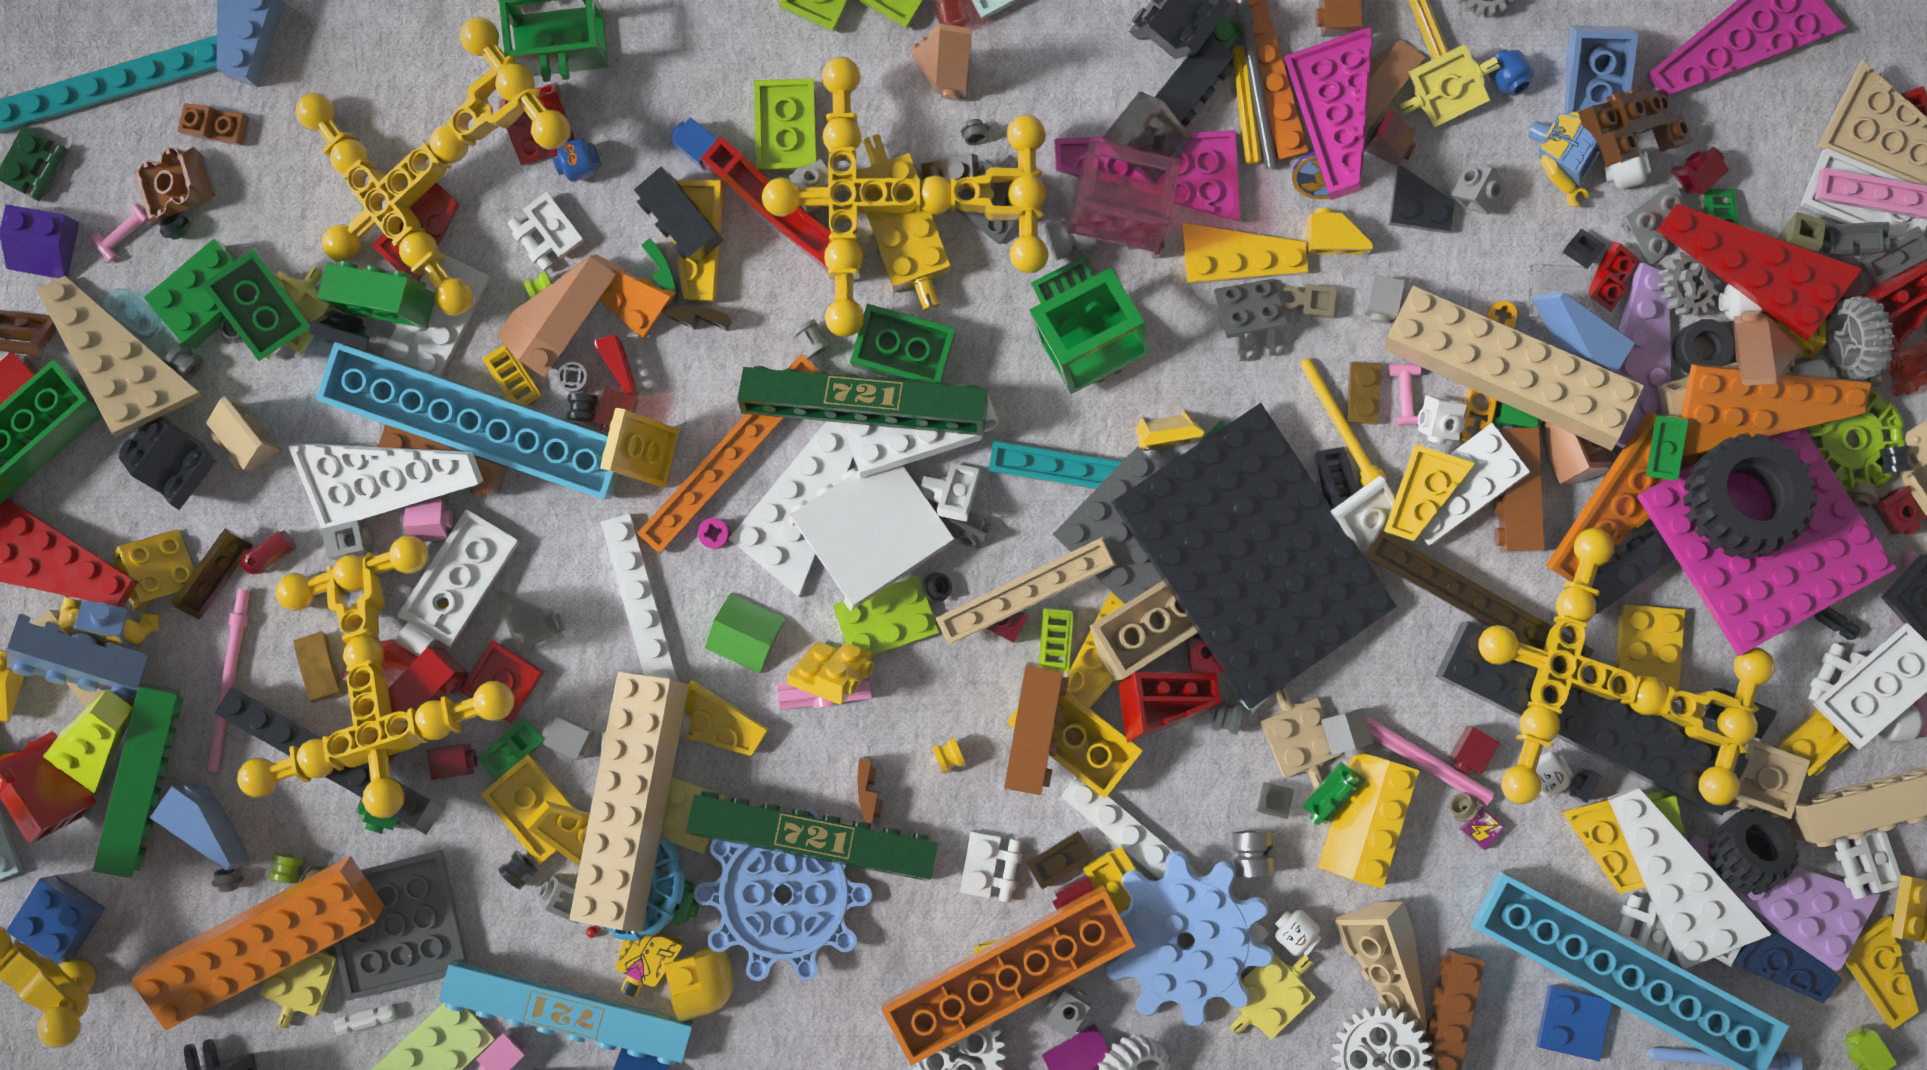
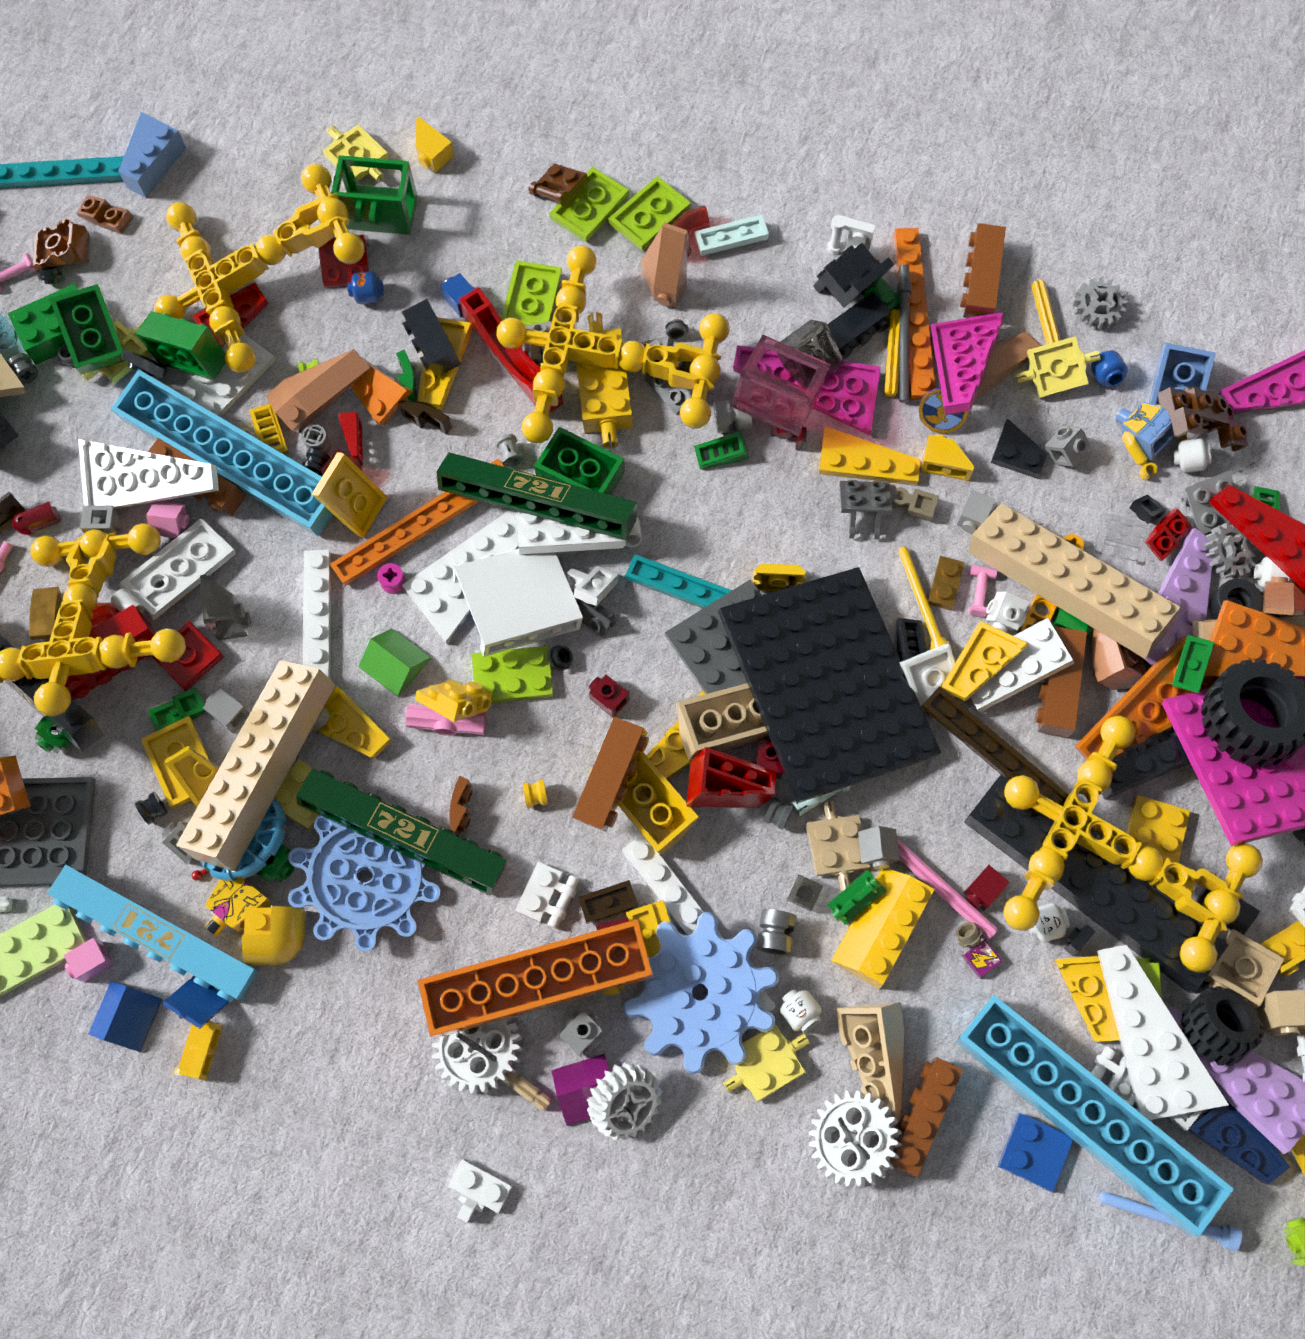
camera: 10 degrees right, 15 degrees down
(241, 434) = (46, 427): tan slope -> none
(451, 761) = (125, 708): dark red brick -> none
(553, 226) = (334, 331): white plate -> none
(1025, 591) = (631, 670): tan tile -> none
(1056, 614) = (655, 699): lime slope -> none
(1091, 331) = (732, 483): green piece -> none
(1392, 139) = (1004, 395): dark red slope -> none
(1581, 331) = (1132, 557): medium blue slope -> none
(1701, 171) = (1252, 469): dark red brick -> none

